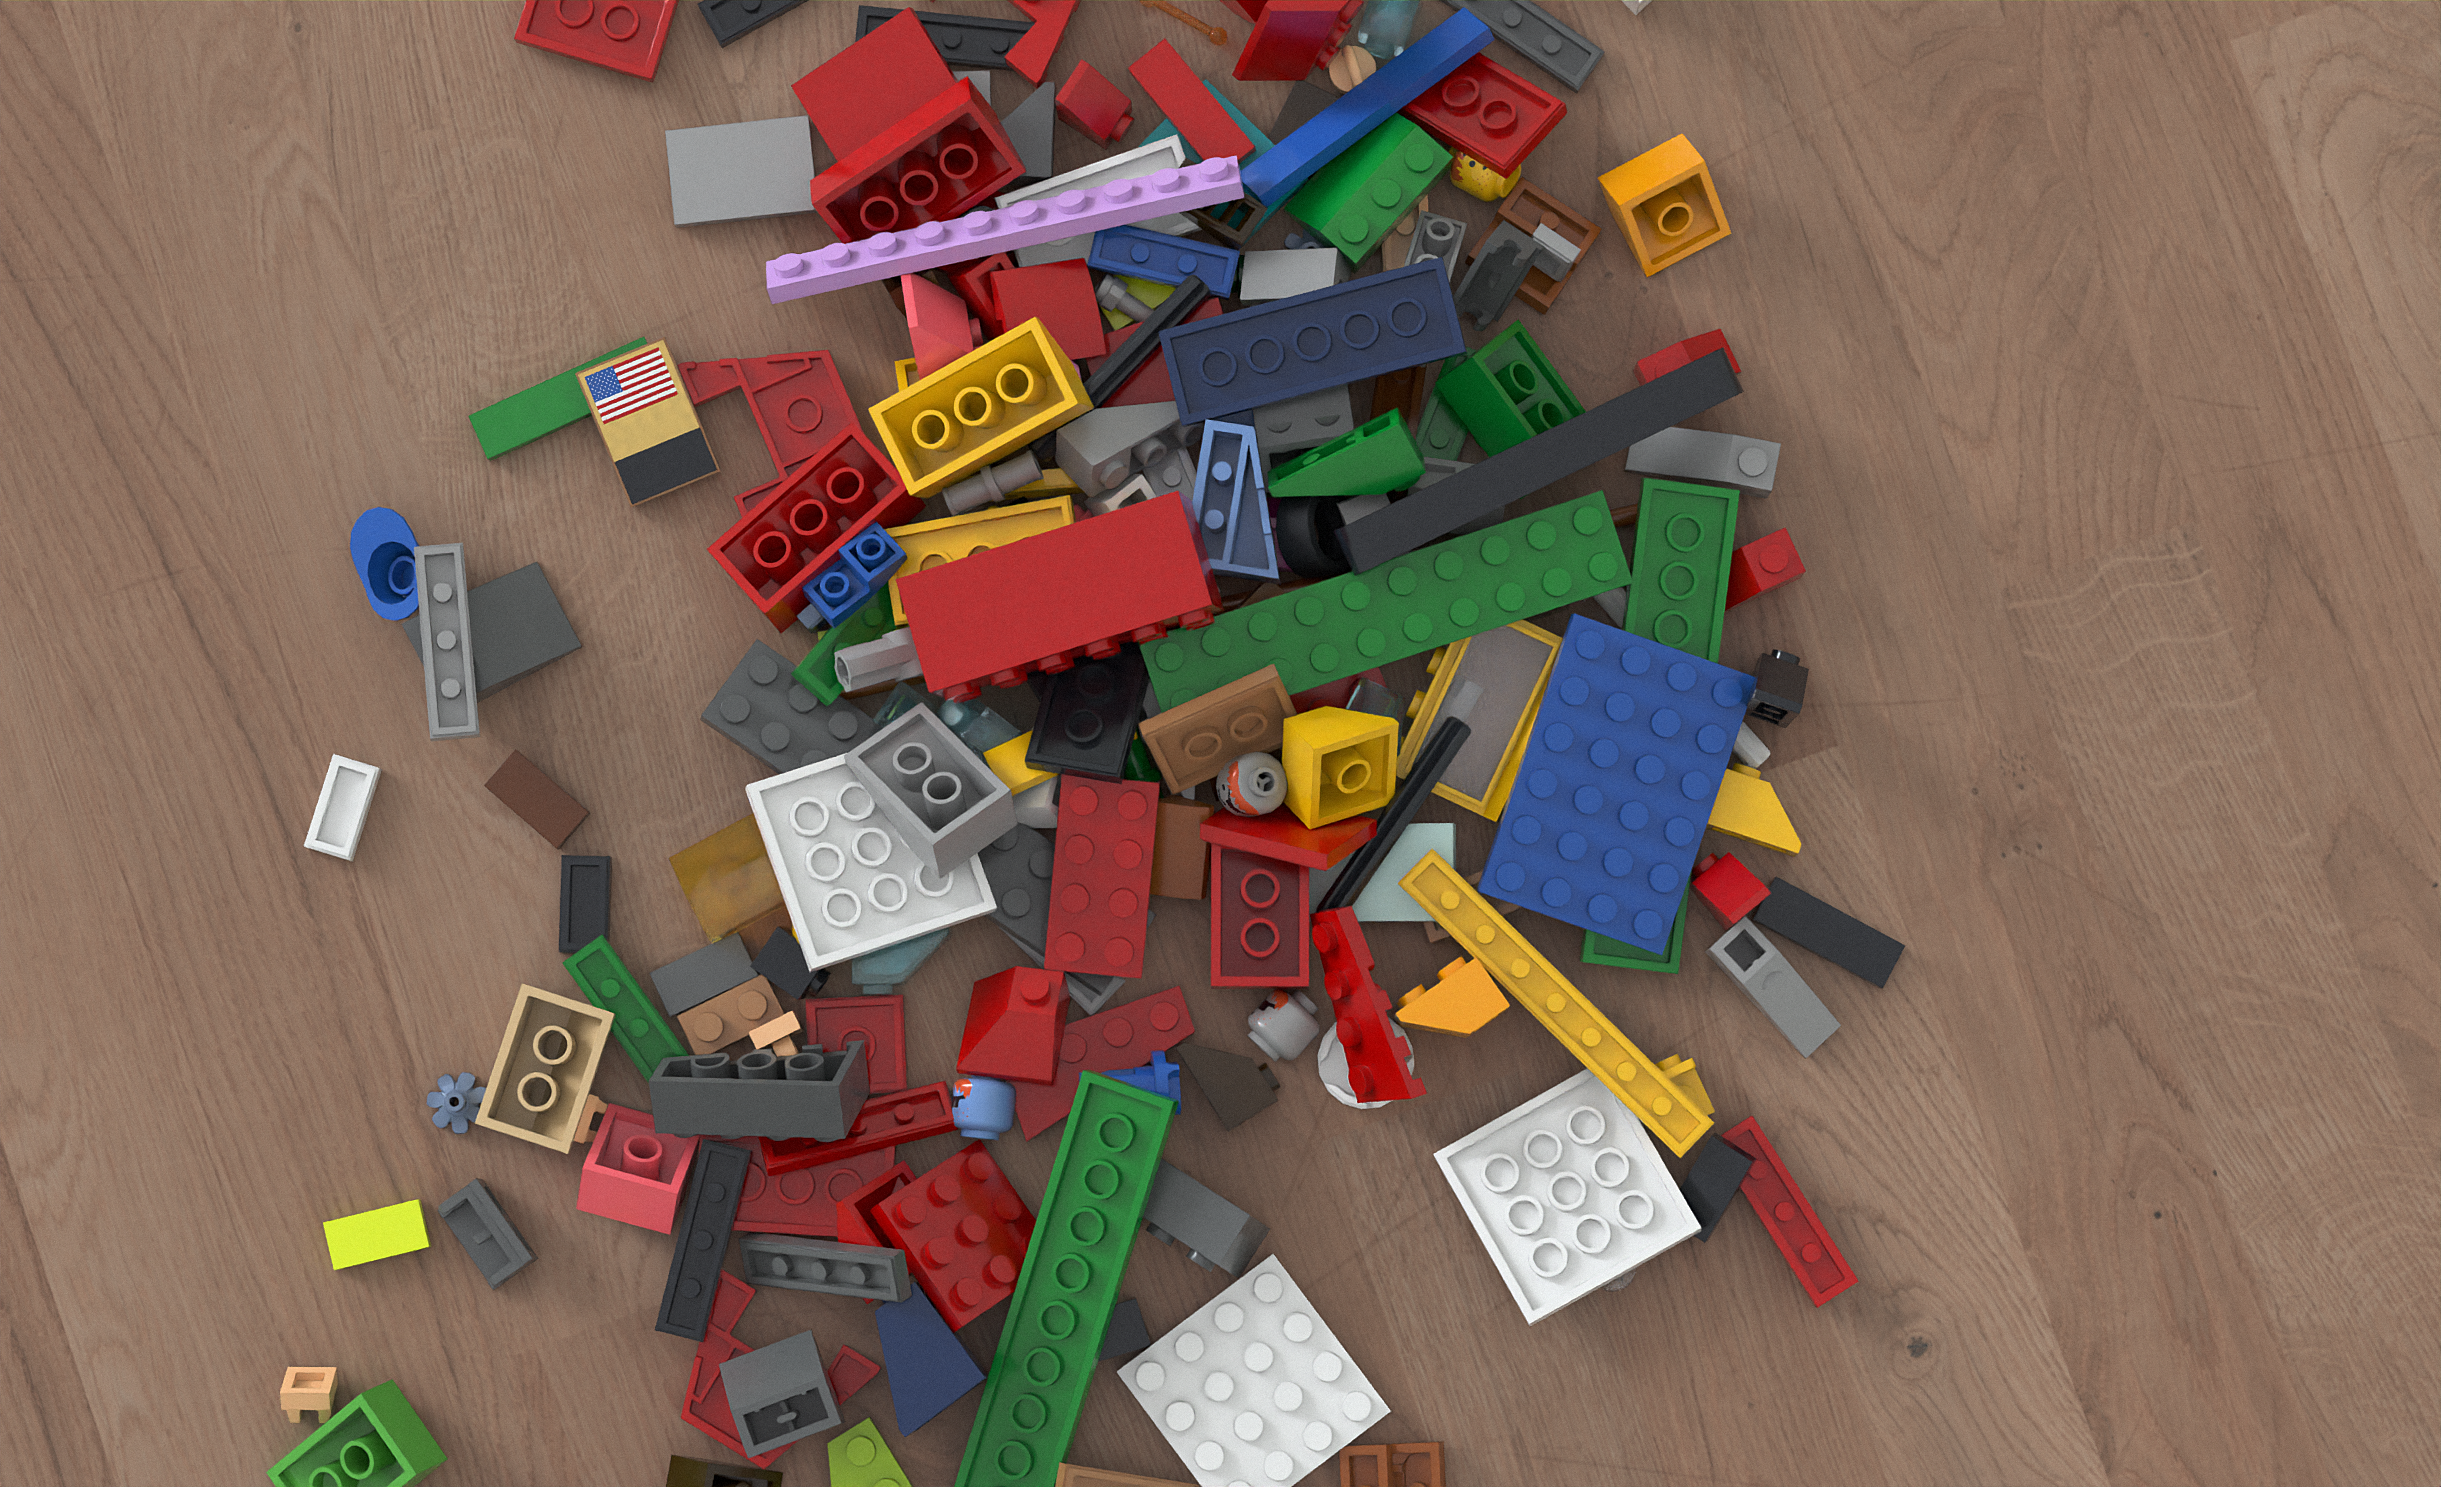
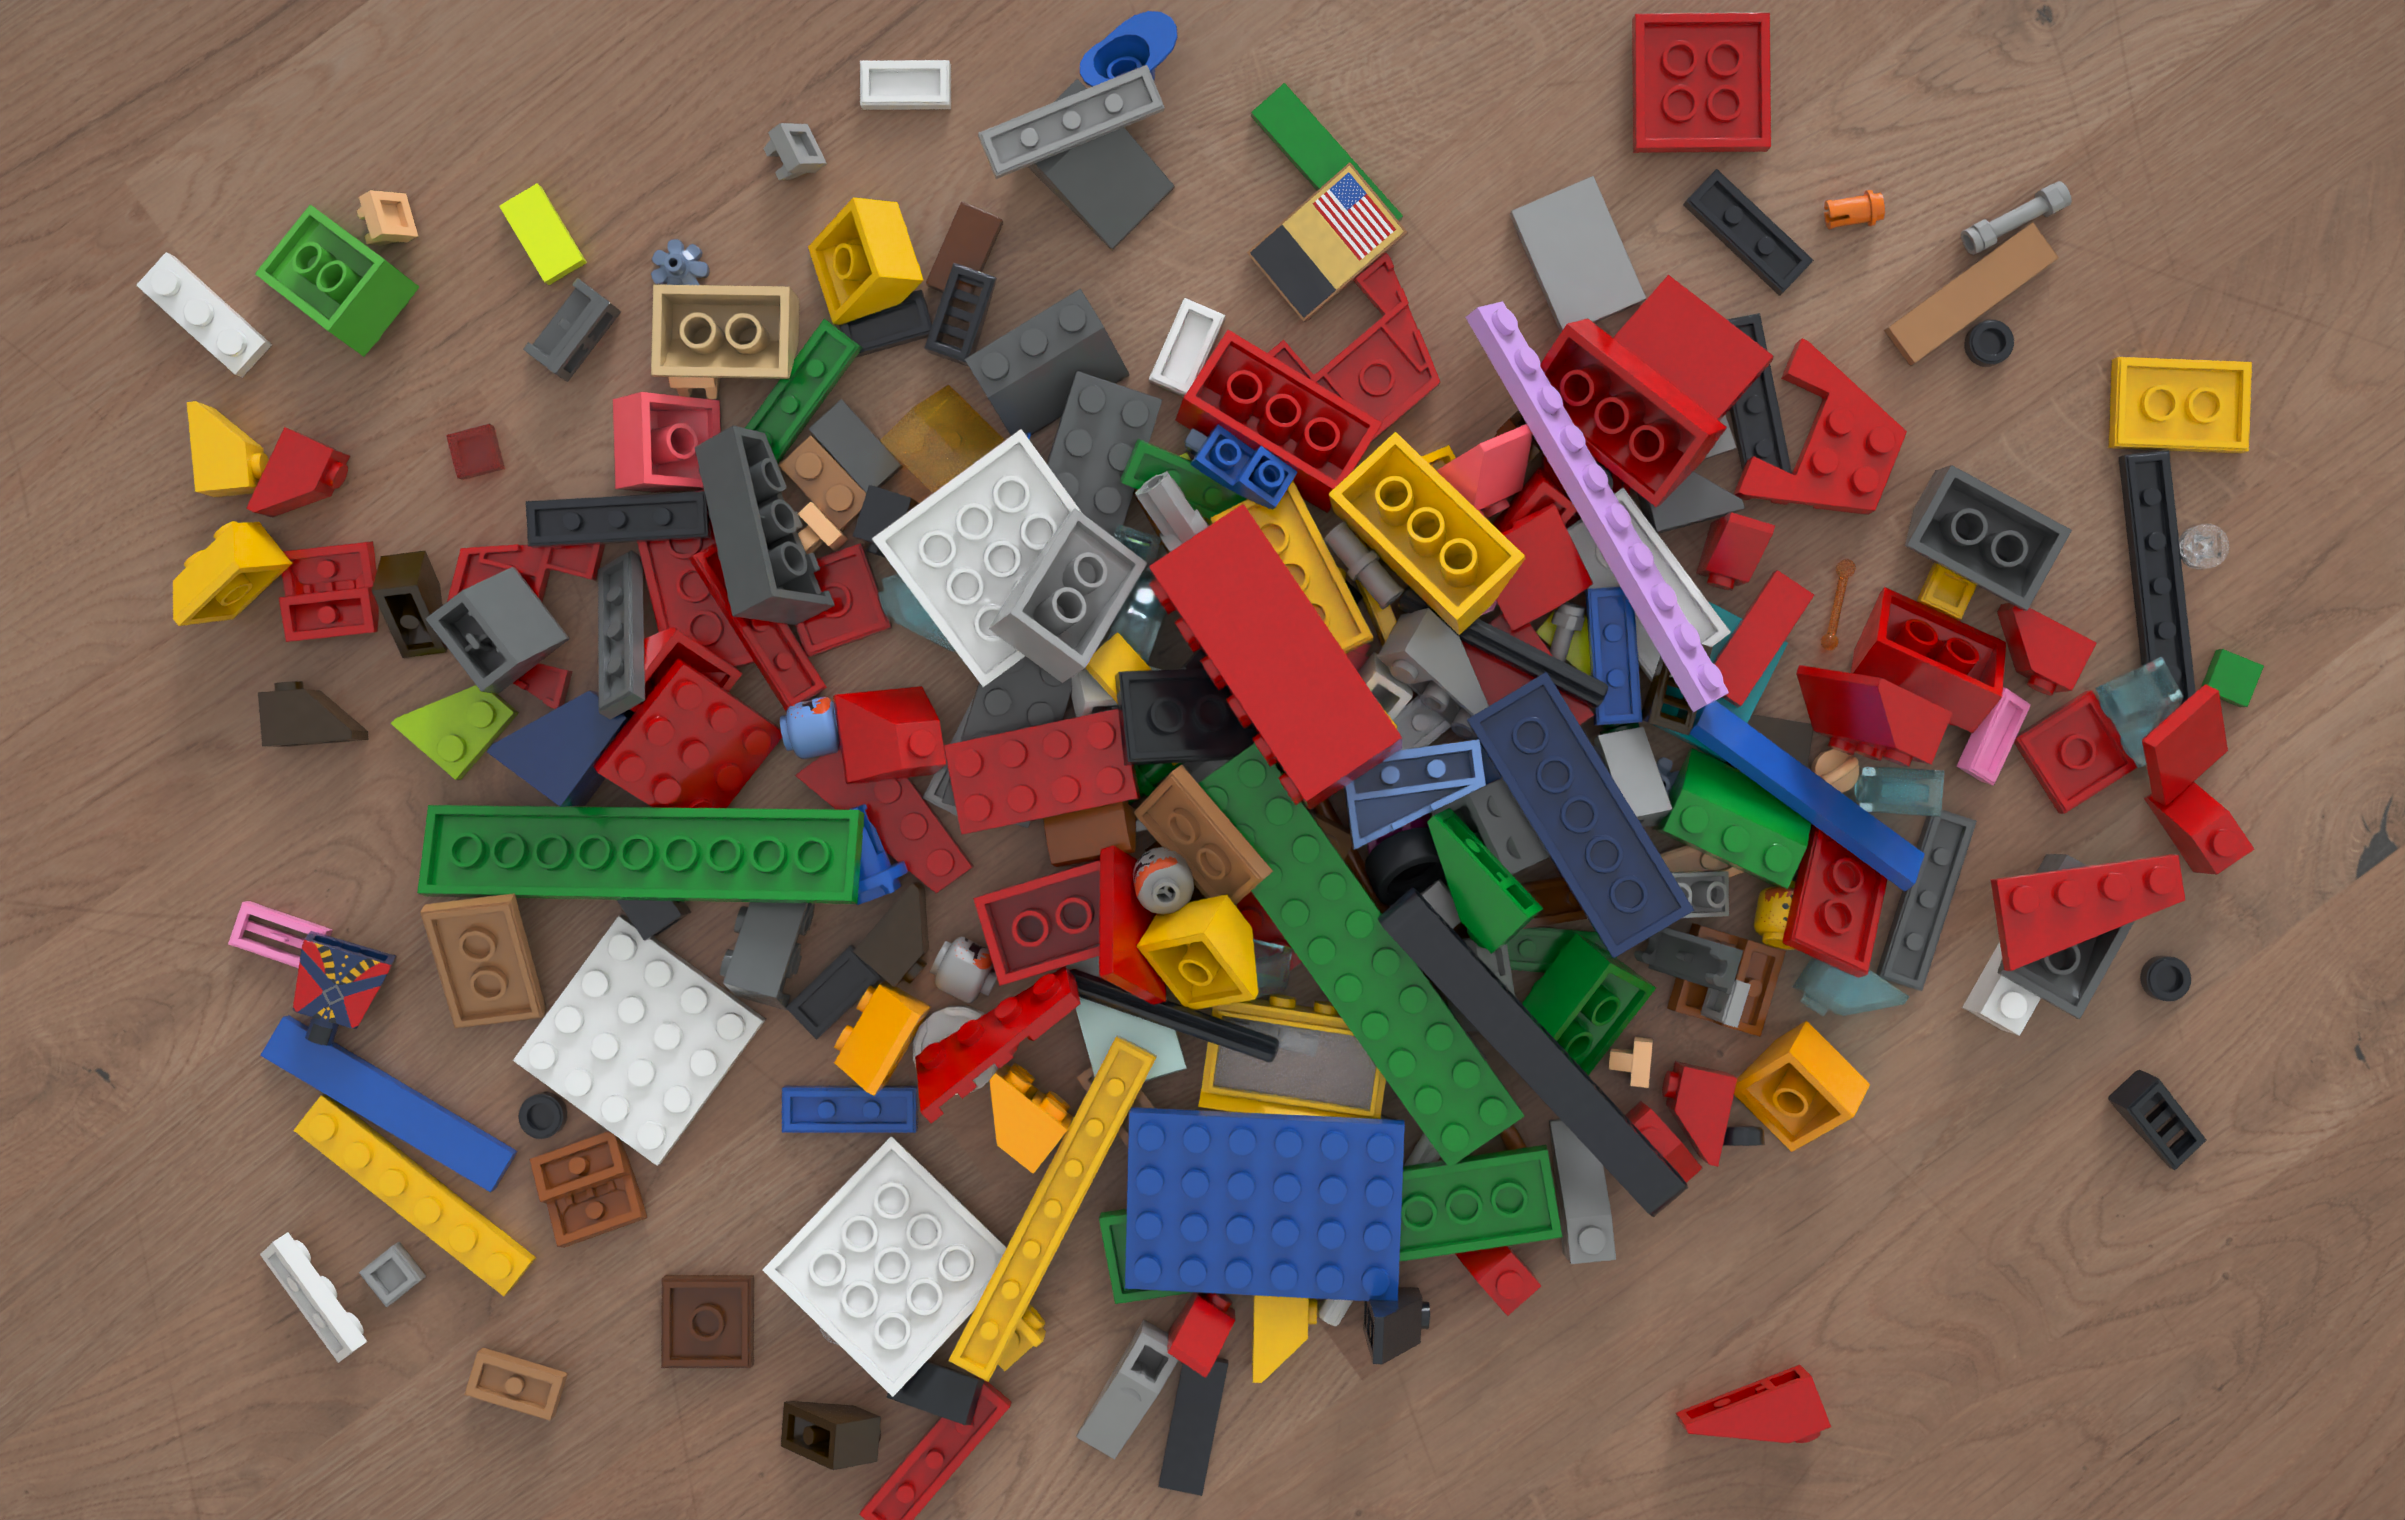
camera: 70 degrees right, 5 degrees up
(376, 939) = (796, 149): none -> light grey tile
(515, 902) = (865, 260): none -> yellow slope
(582, 1376) = (475, 451): none -> clear red tile
(636, 844) = (945, 309): none -> black slope
(682, 762) = (1034, 364): none -> dark grey slope
(709, 600) = (1186, 347): none -> white tile
(1265, 1171) = (833, 992): none -> black tile
(1323, 1130) = (880, 1036): none -> light orange slope
(1393, 1192) = (849, 1109): none -> blue tile
(1571, 1410) = (707, 1321): none -> reddish brown tile
(1579, 134) = (1842, 993): none -> clear light blue slope
(1588, 361) = (1634, 1061): none -> light nougat tile
(1654, 311) = (1701, 1106): none -> red slope
(1697, 279) = (1744, 1136): none -> black tile
(1724, 1313) = (831, 1433): none -> dark brown slope
(1988, 328) = (1771, 1410): none -> red slope

